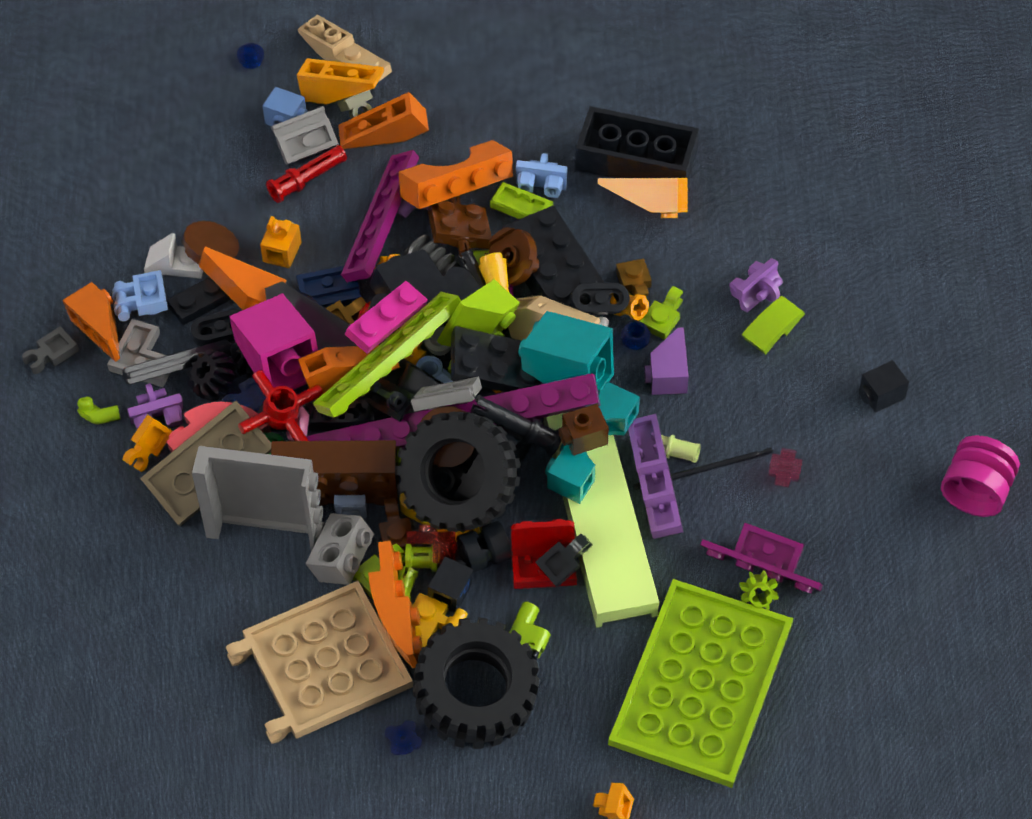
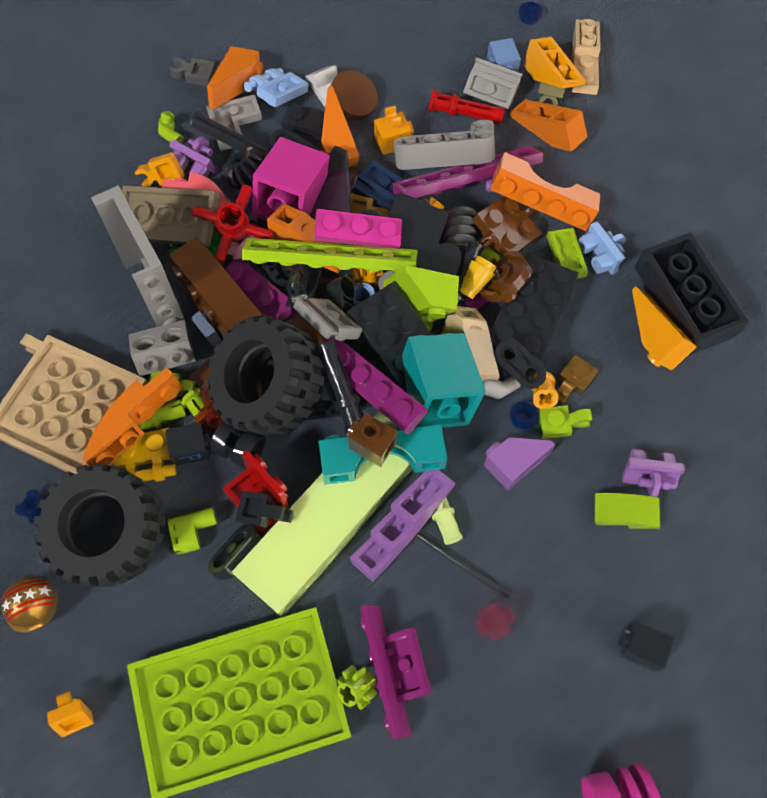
camera: 50 degrees right, 10 degrees up
(357, 197) = (447, 148): none -> light grey beam
(494, 779) = (29, 603): none -> pearl gold helmet
(576, 609) = (233, 551): none -> black plate

